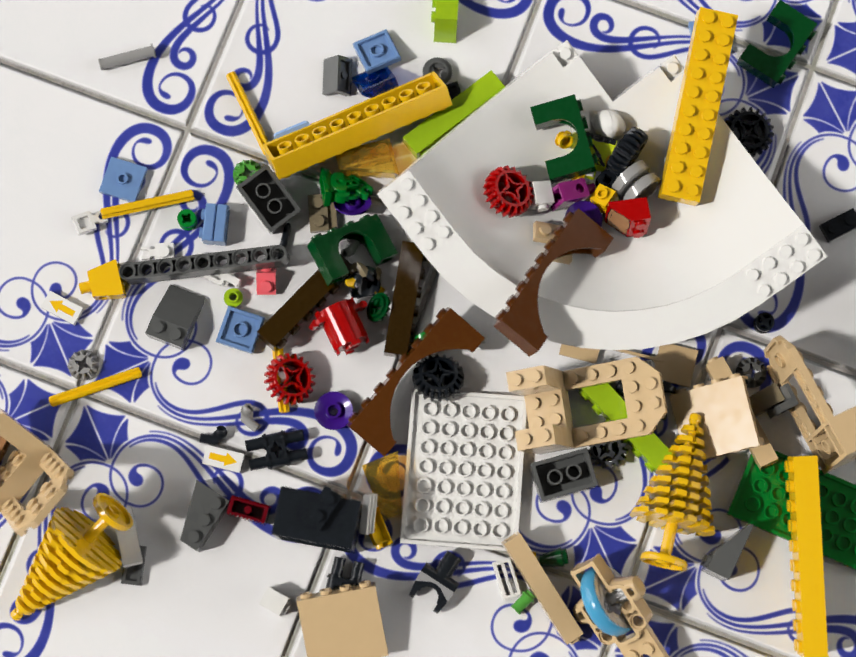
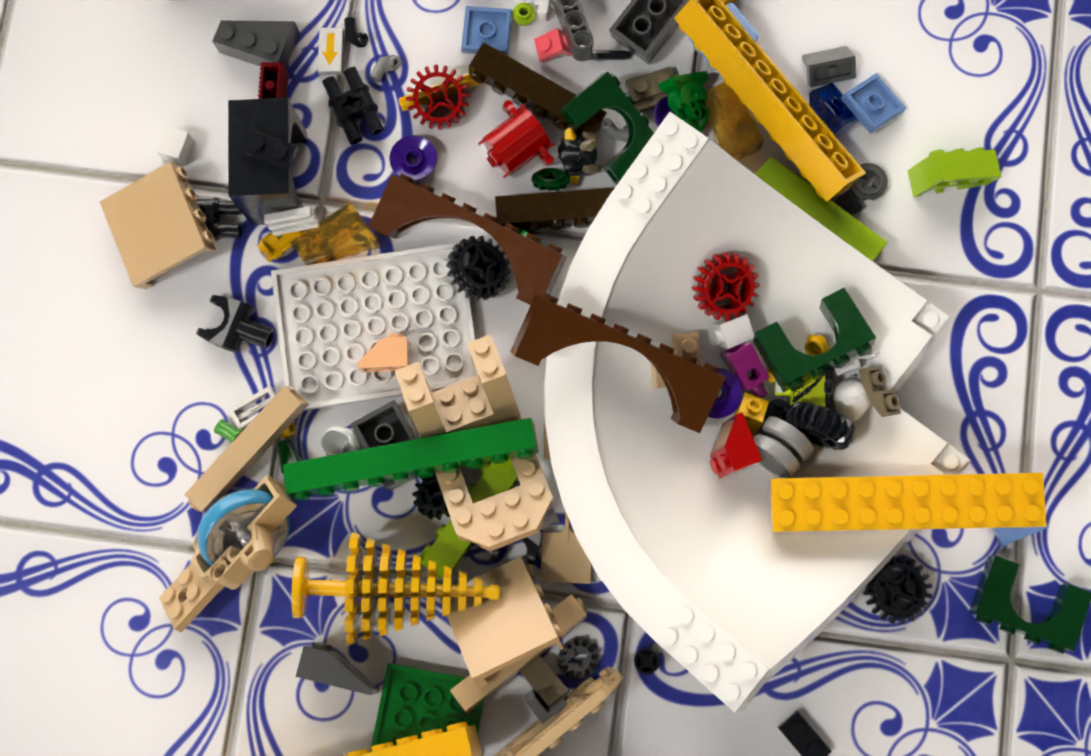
camera: 85 degrees right, 0 degrees up
(492, 461) = (387, 355): none -> light nougat slope
(556, 514) = (339, 440): none -> white hair
(583, 458) = (411, 458): none -> green brick
(617, 102) = (884, 401): none -> dark tan slope

